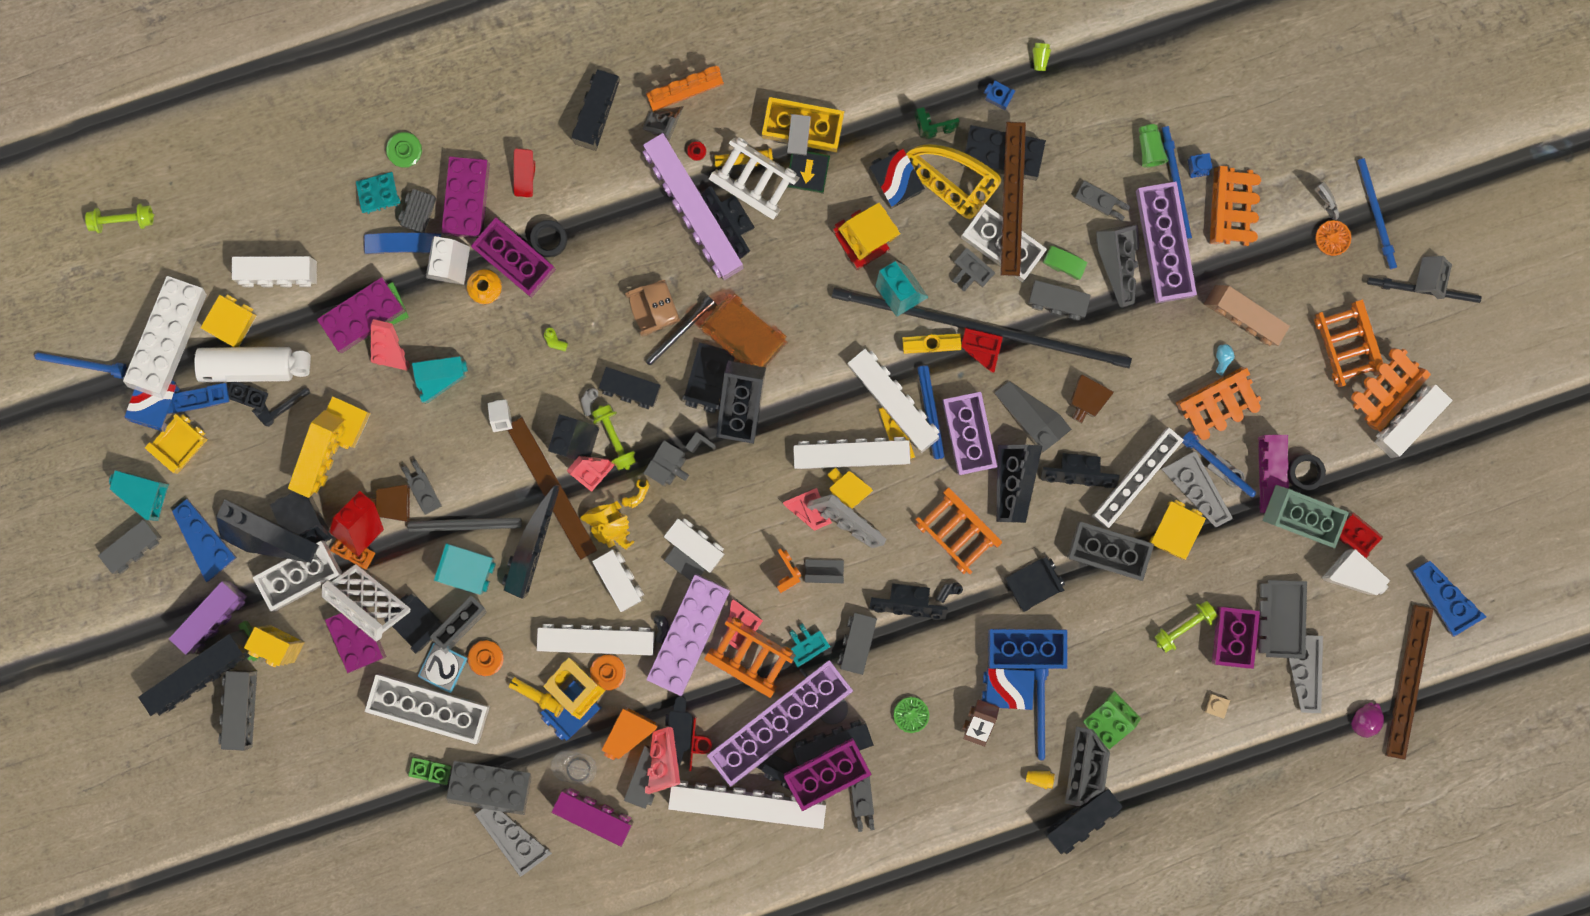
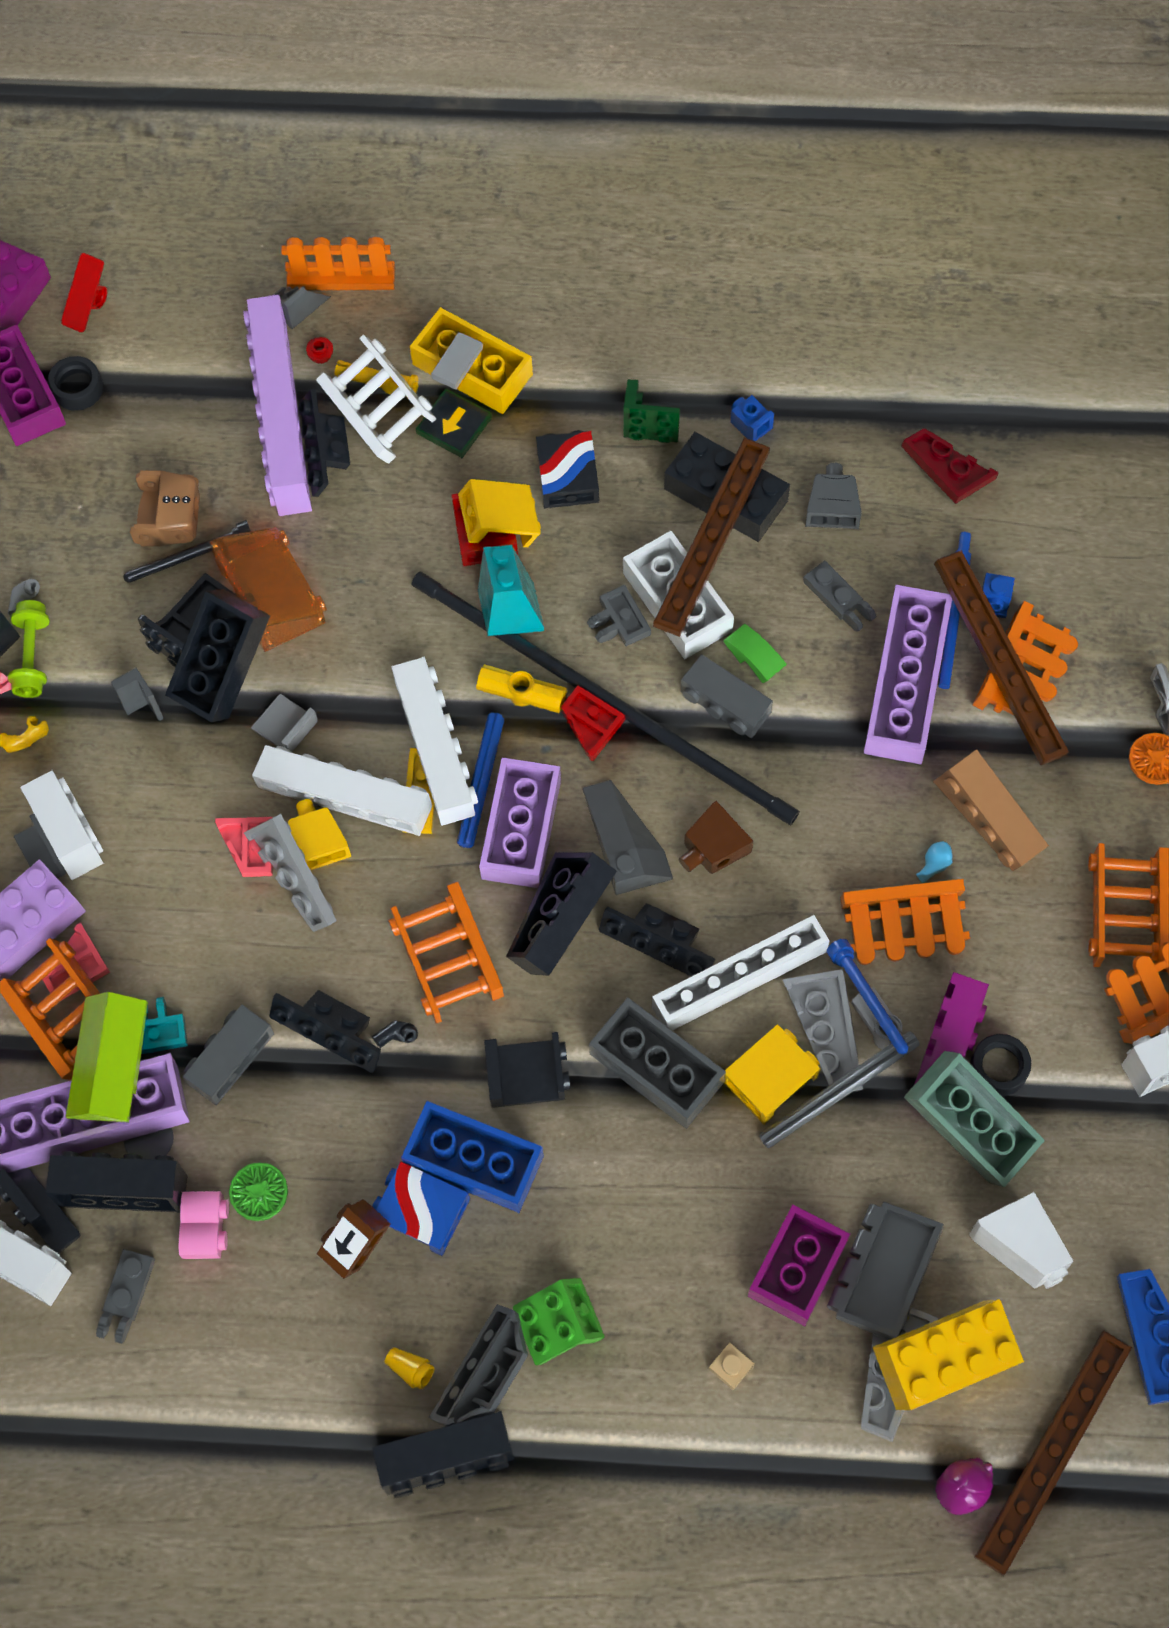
camera: 25 degrees right, 20 degrees down
(552, 340) = (15, 506): lime arm -> none
(595, 110) = (211, 257): black wedge -> none
(629, 388) = (83, 596): black brick -> none
(667, 465) = (78, 704): dark grey brick -> none
(787, 582) = (173, 925): orange bracket -> none
(794, 422) = (285, 723): none -> light grey piece
(797, 681) = (107, 1058): none -> lime slope
(824, 571) = (229, 938): dark grey panel -> none
(827, 774) = (77, 1205): magenta brick -> none
(889, 748) = (202, 1225): none -> bright pink brick
(950, 187) = (657, 526): yellow beam -> none
(1041, 56) = (828, 391): lime cone -> none
(1041, 676) = (478, 1207): blue piece -> none
(1074, 135) = (834, 500): none -> dark grey torso
(1118, 250) = (835, 668): dark grey wedge -> none
(1137, 82) = (949, 469): none -> dark red wing
(1151, 146) = (936, 544): bright green plant -> none
(1165, 640) = (768, 1210): lime piece -> none
(1219, 212) = (1001, 658): none -> reddish brown tile
(1219, 528) = (835, 1092): none -> dark grey axle
(1336, 656) = (948, 1354): none -> yellow brick
(1359, 535) = (1051, 1185): red bracket -> none

